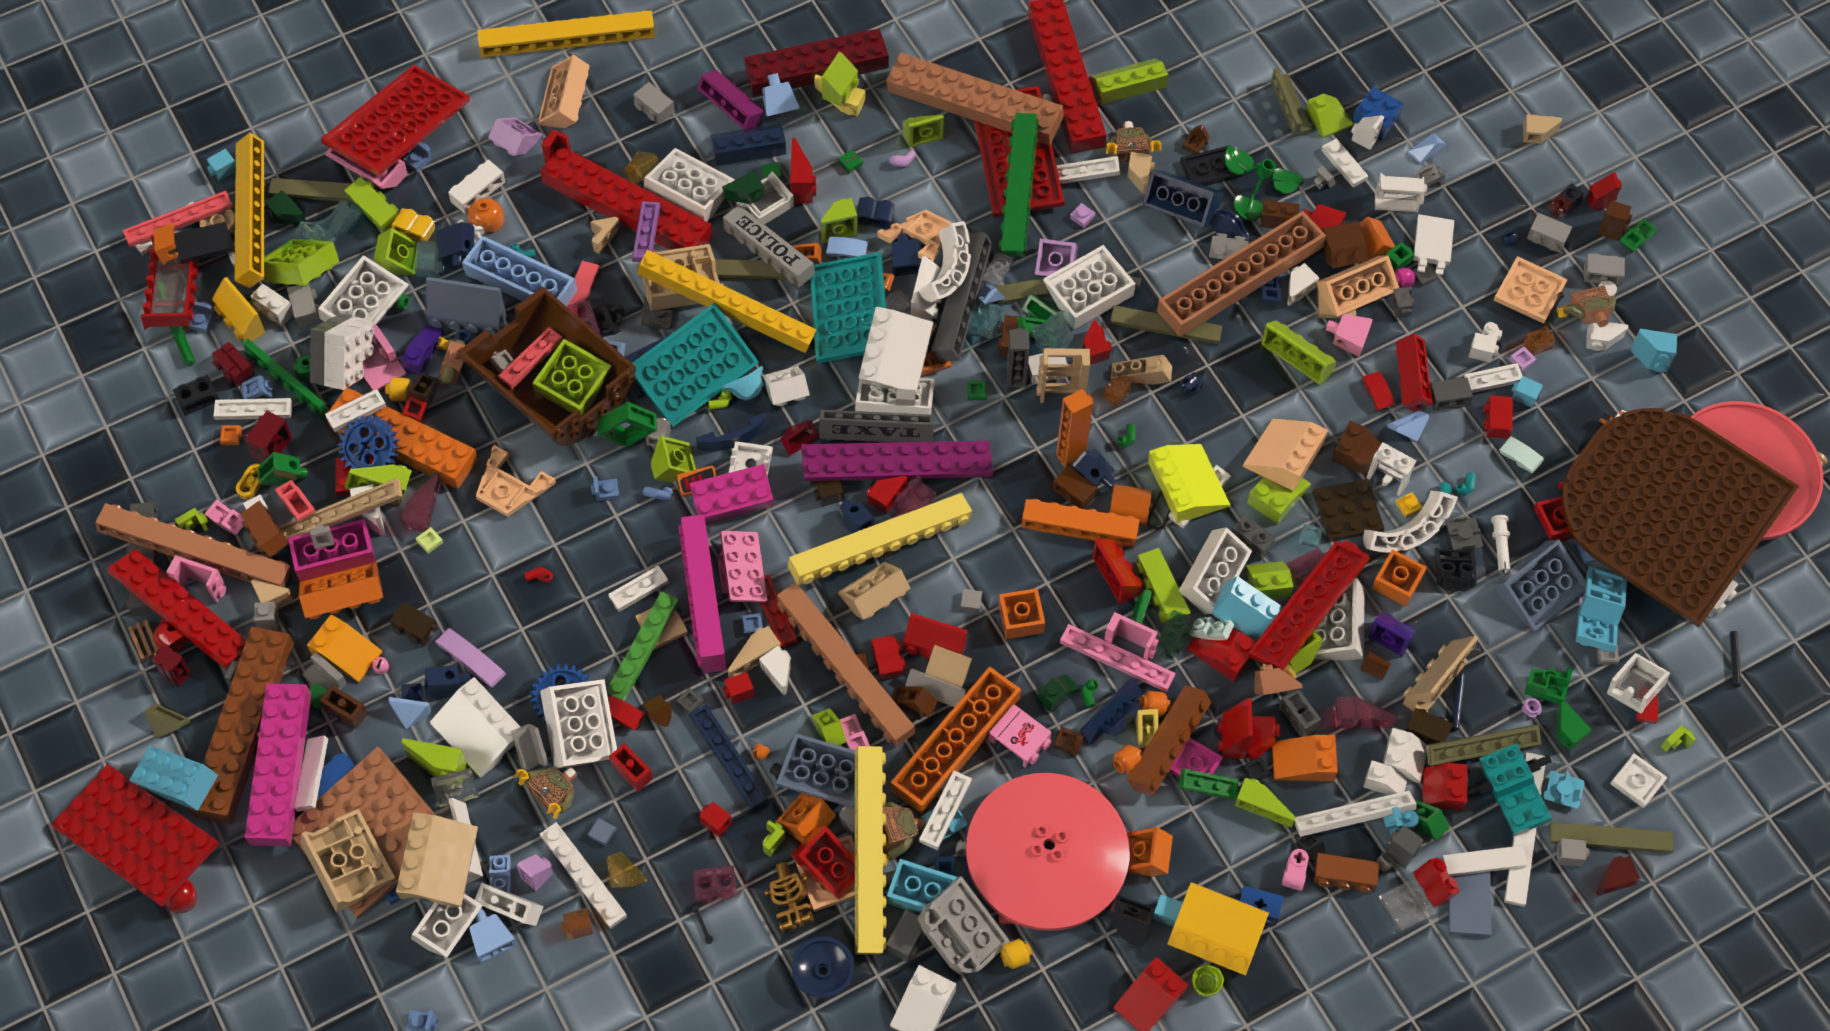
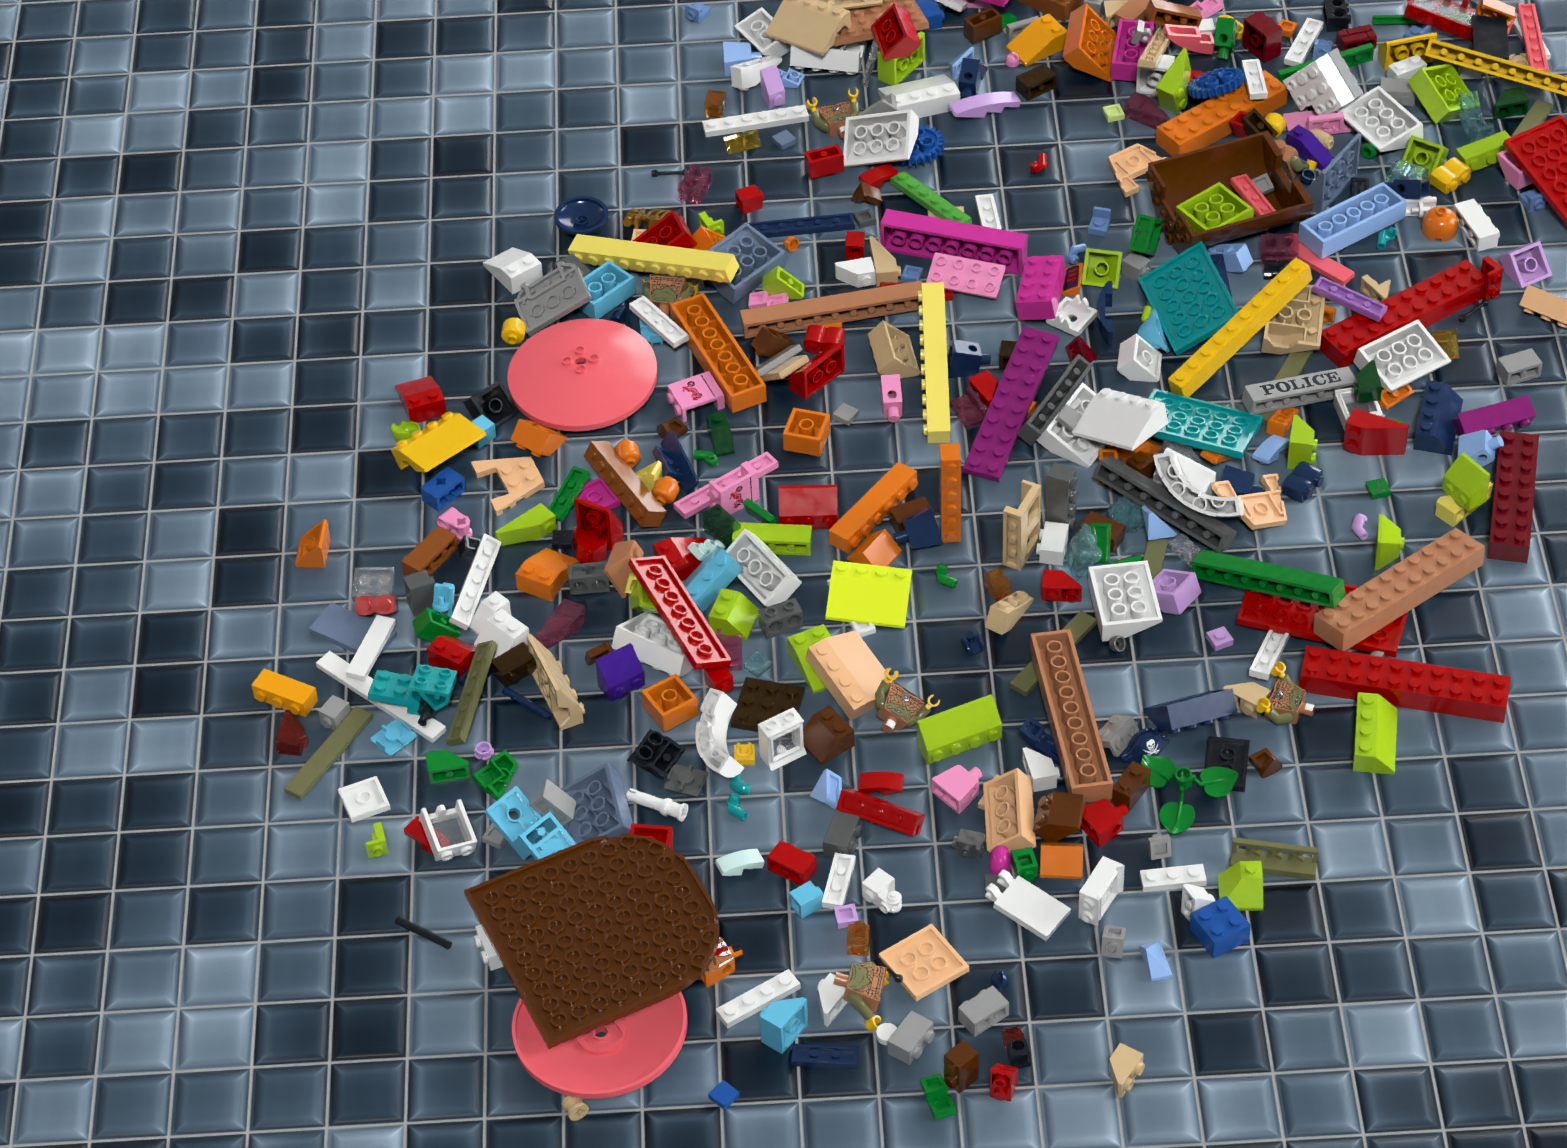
camera: 120 degrees right, 15 degrees down
(402, 342) = (1325, 138): none -> tan brick
(426, 757) = (895, 33): none -> red slope
(941, 561) = (891, 402): none -> bright pink torso
(1203, 848) = (517, 475): none -> light nougat wing
(1299, 402) = (898, 705): none -> torso
(1397, 986) = (314, 547): none -> orange slope
(1566, 606) = (554, 800): none -> light grey panel
(1577, 910) = (284, 692): none -> light orange brick
(1633, 388) = (757, 998): none -> white plate
(1648, 315) = (824, 1056): none -> dark blue tile
(1731, 372) = (723, 1095): none -> blue tile

